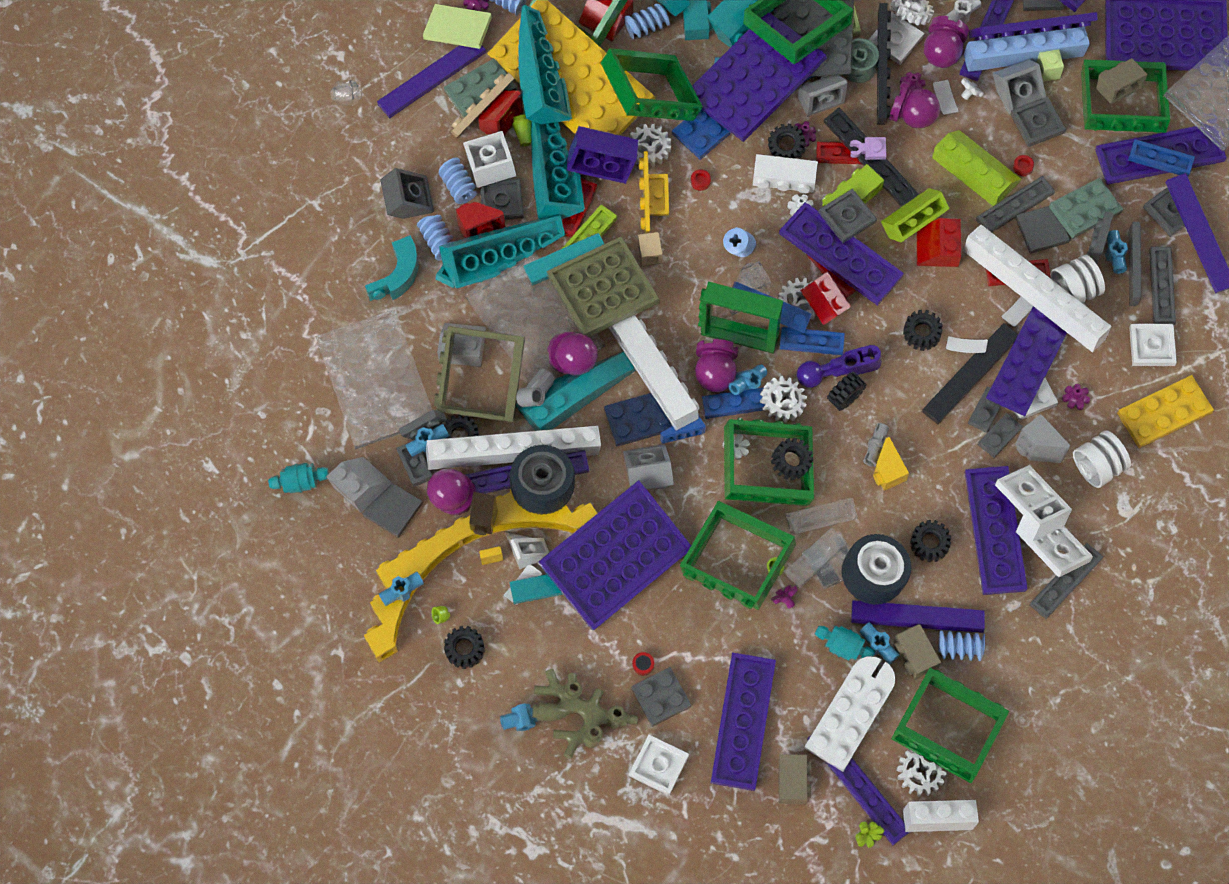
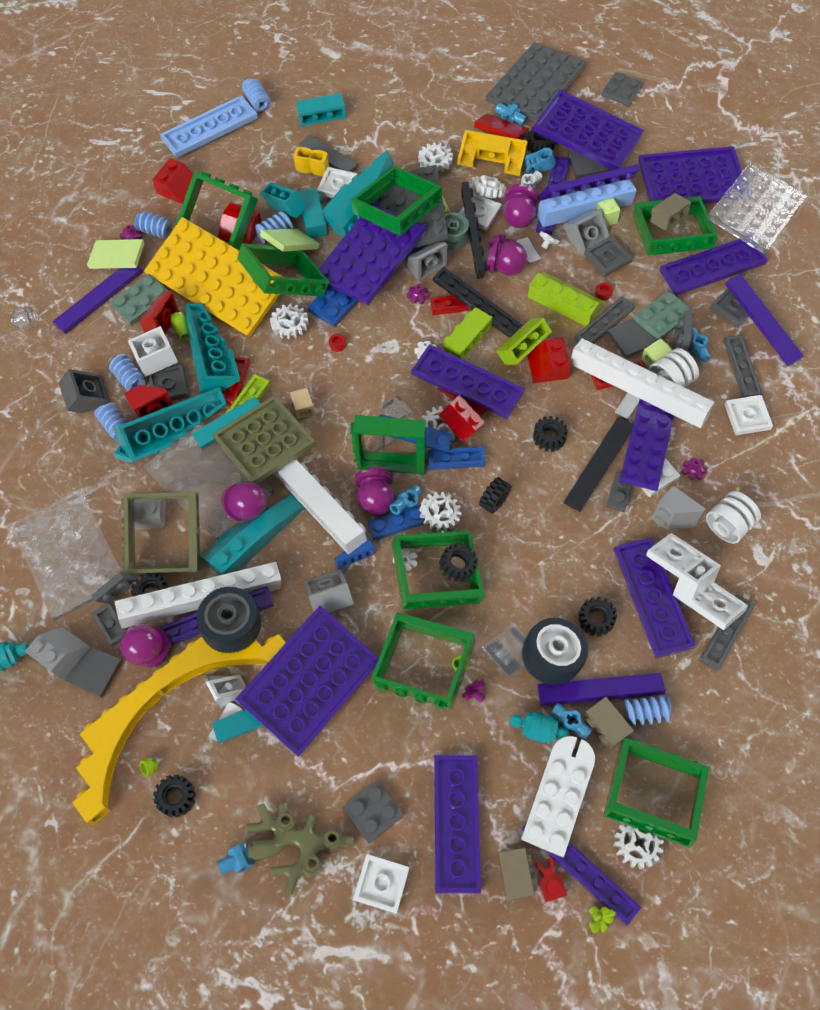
camera: 10 degrees left, 5 degrees down
(403, 275) = (85, 459): teal arch -> none
(409, 584) = (96, 754): dark azure axle -> none
(424, 434) = (109, 608): dark azure axle -> none
(483, 513) = (175, 661): dark brown slope -> none
(487, 97) = (135, 315): tan plate -> none
(491, 555) = (191, 700): yellow tile -> none
(535, 391) = (214, 539): light grey piece -> none
(541, 86) = (190, 288): teal wedge -> none
(602, 154) = (249, 331): dark purple brick -> none
(636, 419) = (310, 551): dark blue plate -> none
(643, 663) = (350, 781): tile -> none
(655, 194) = (300, 358): yellow bracket -> none
(664, 43) = (289, 239): none -> yellowish green tile
(741, 249) = (378, 385): light blue piece -> none
(785, 173) = (408, 326): white brick -> none
(787, 131) = (405, 311): black tyre -> none
(811, 373) = (461, 486): dark purple beam -> none
(815, 558) = (496, 650): clear plate -> none
(821, 515) = (494, 610): clear brick -> none
(826, 795) = (551, 884): none -> red plate
(847, 215) = (467, 349): dark grey tile -> none
(873, 148) = (477, 293): lavender plate -> none
(875, 444) = (530, 538): light grey pin -> none
(890, 467) = (546, 555): yellow slope -> none
(940, 815) = (668, 887): white brick -> none
(966, 345) = (590, 441): white sticker -> none
(1000, 435) = (637, 512): dark grey plate -> none
(1065, 253) = (655, 352): none -> yellowish green brick
(1134, 263) = (716, 352): dark grey tile -> none
(1161, 158) = (716, 266): blue plate -> none
(1165, 411) = (773, 469): yellow plate -> none

